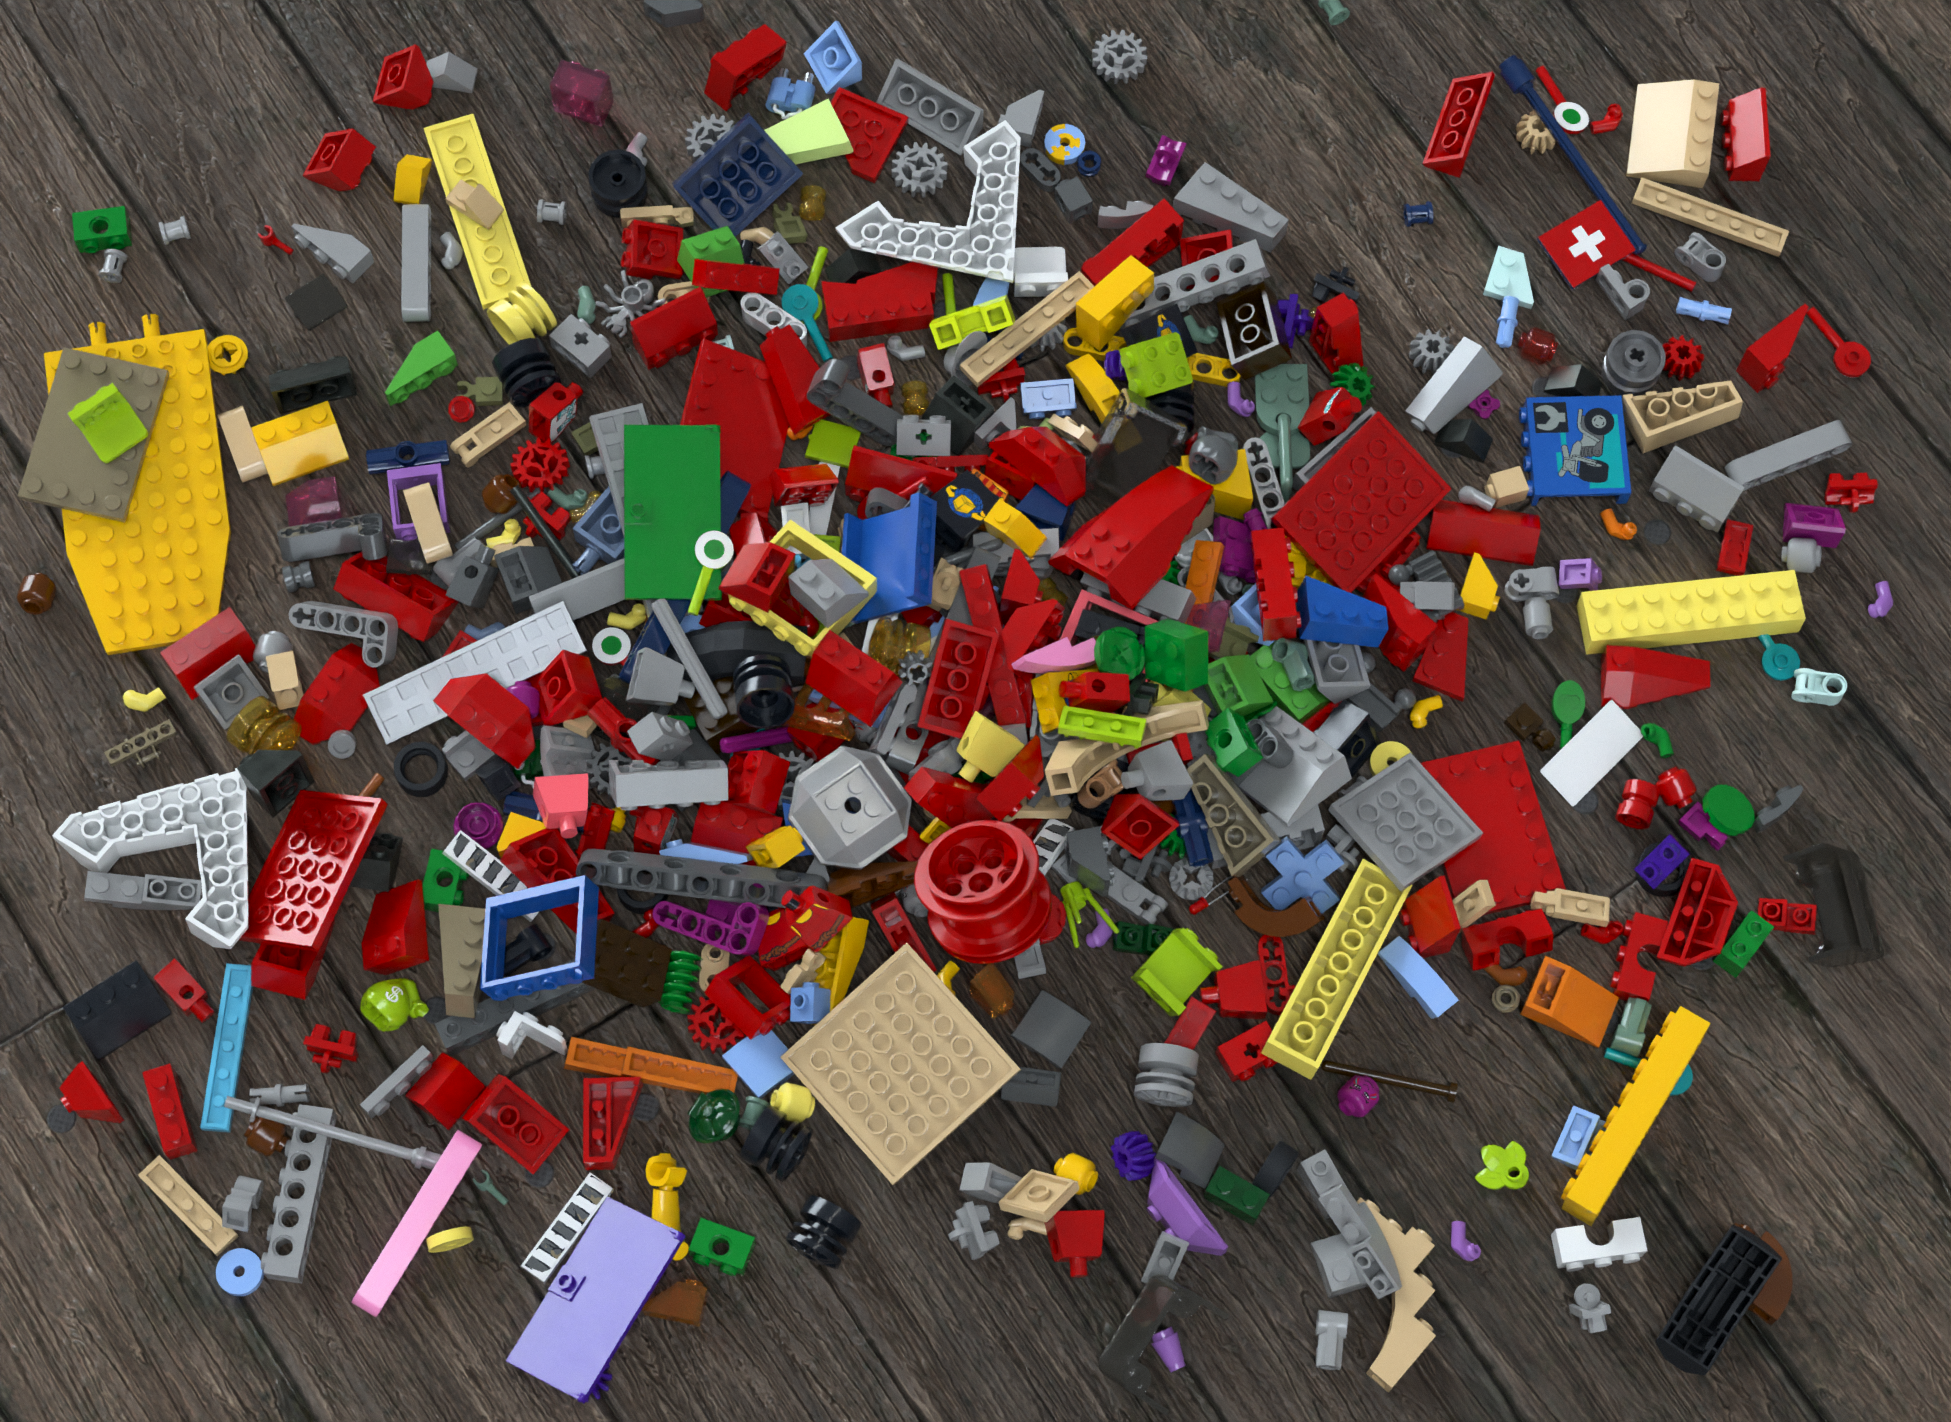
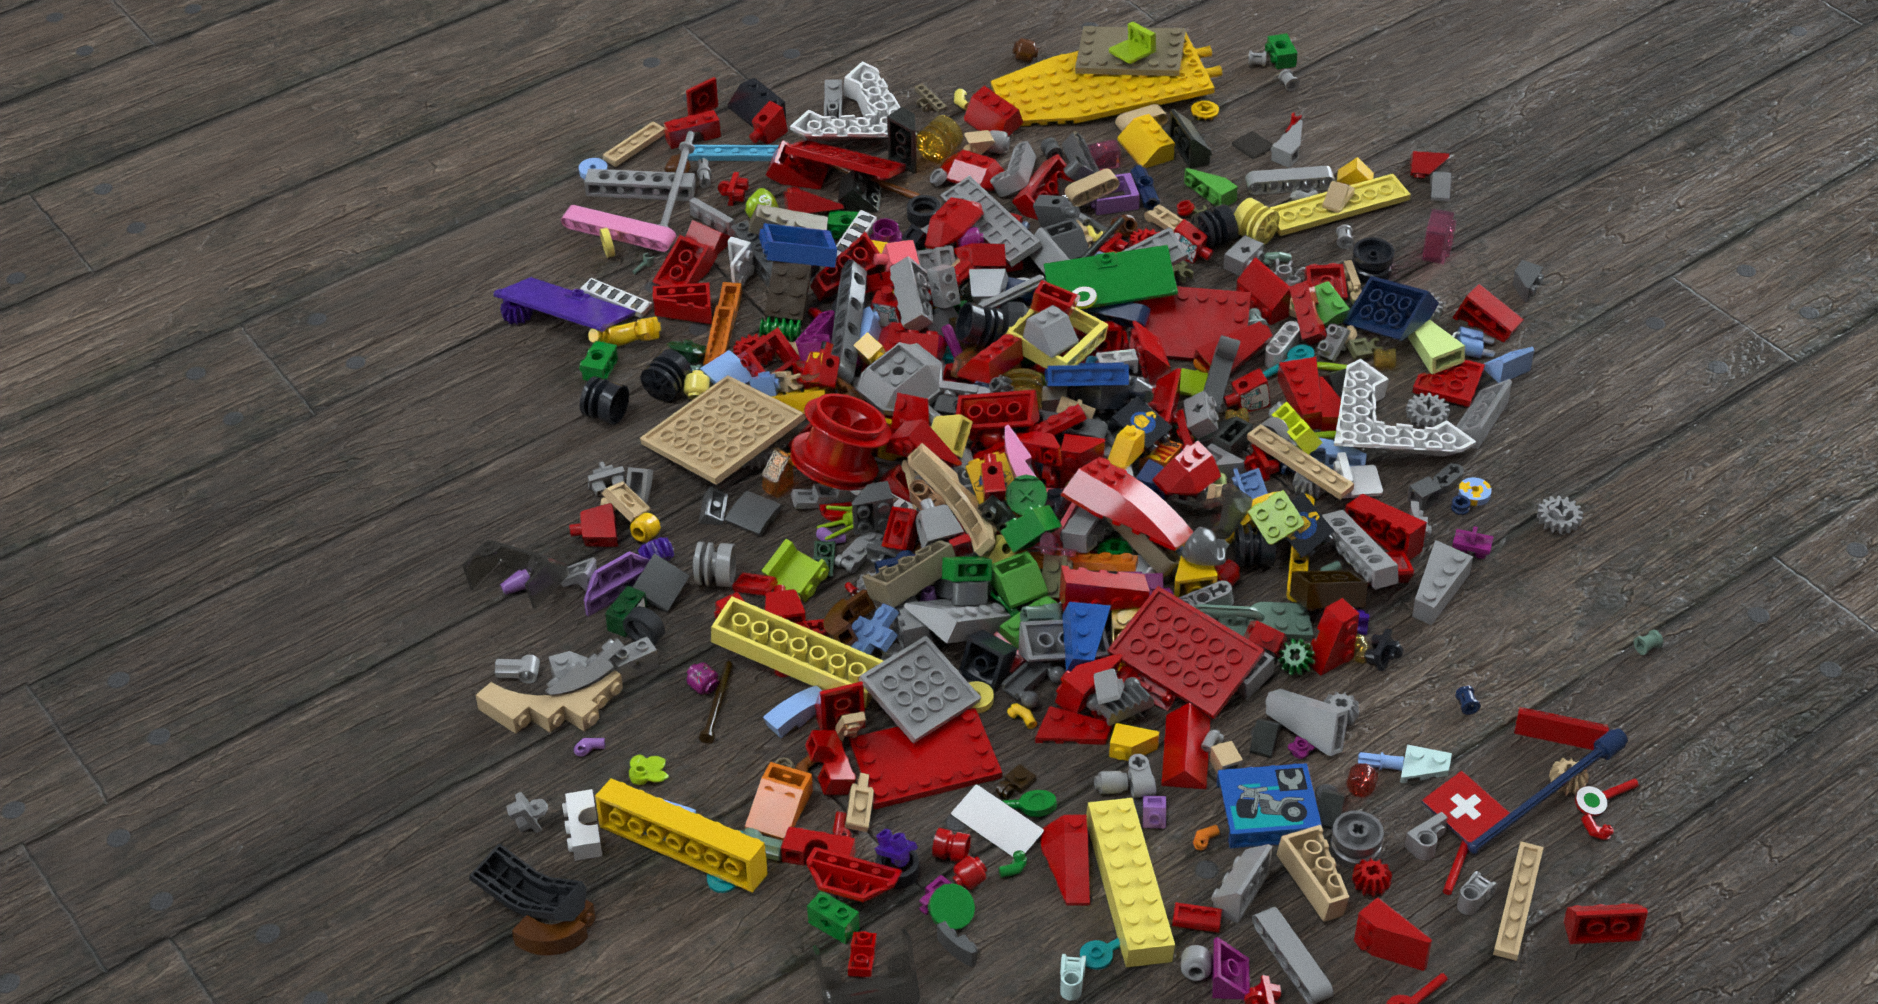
camera: 90 degrees right, 25 degrees down
(229, 690) = (970, 121): light grey slope -> none
(239, 1204) = (639, 161): light grey leg -> none
(340, 160) = (1358, 141): red slope -> none
(636, 146) = (1404, 272): light grey arm -> none
(679, 1303) = (561, 346): clear orange slope -> none
(1024, 116) = (1489, 464): light grey slope -> none
(1102, 726) = (962, 480): lime plate -> none
(1113, 301) = (1334, 499): yellow wedge -> none
(1236, 403) = (1274, 595): medium lavender arm -> none
(1673, 132) = (1597, 876): slope -> none
(1703, 310) = (1424, 897): light blue pin -> none

